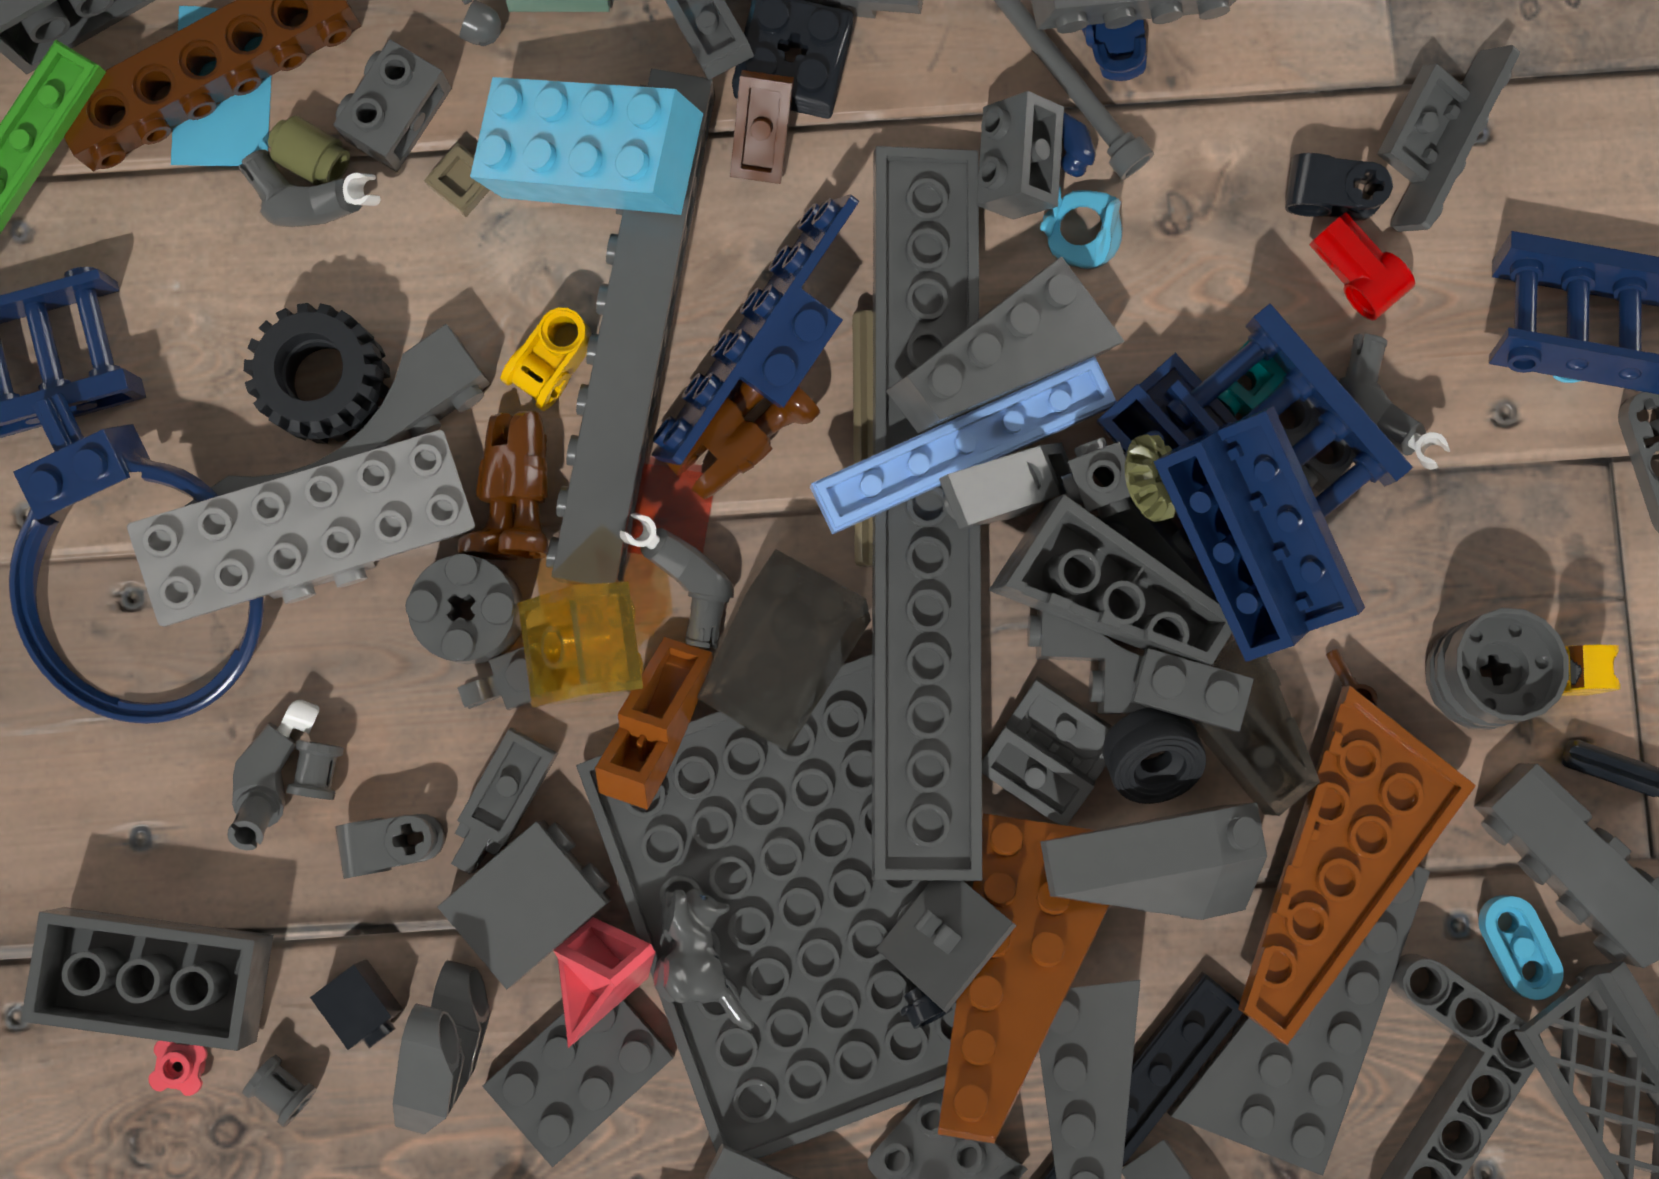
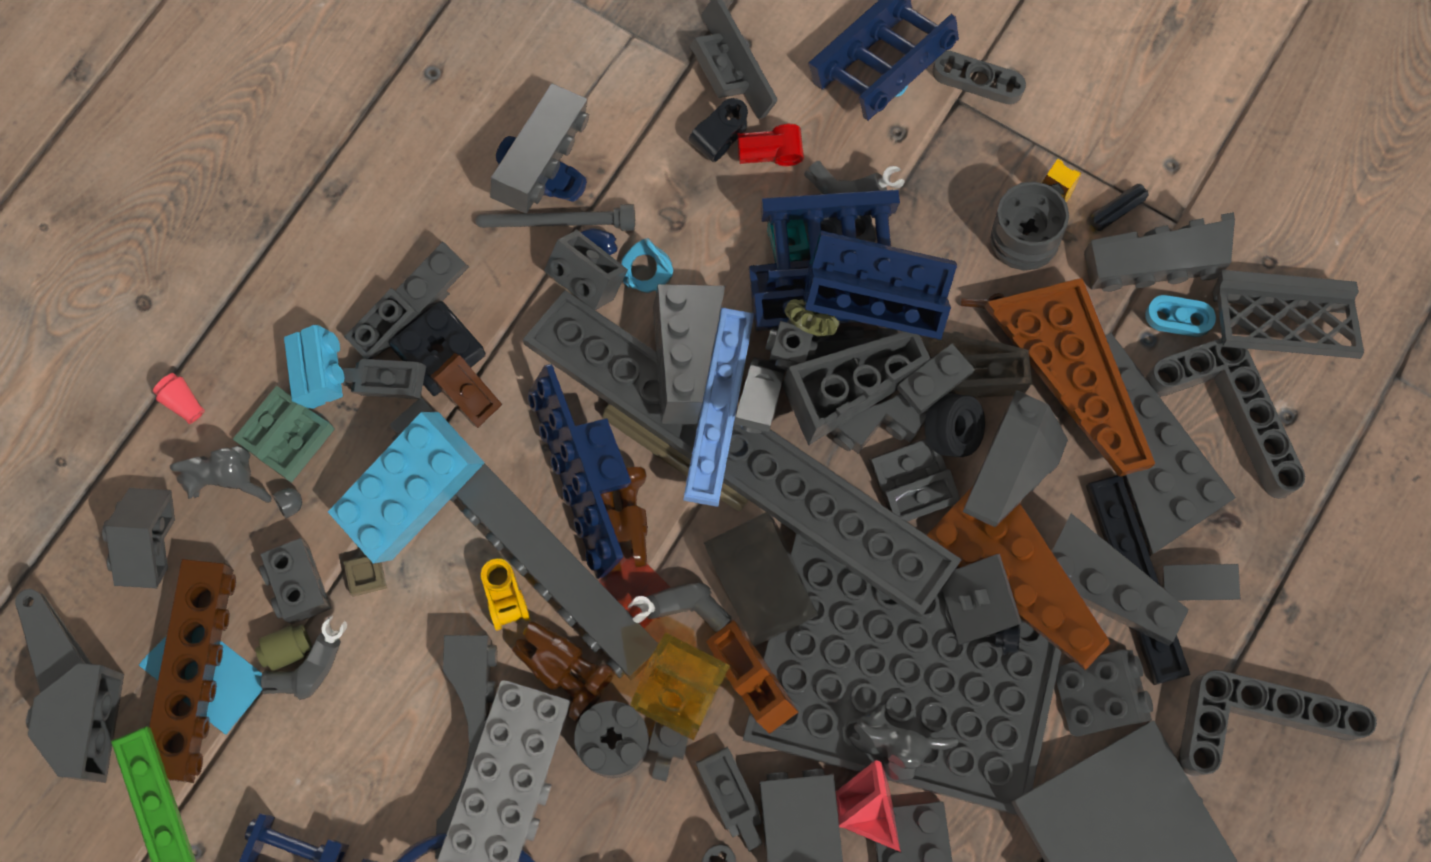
camera: 60 degrees left, 10 degrees down
(284, 349) = (390, 712): black tyre -> none

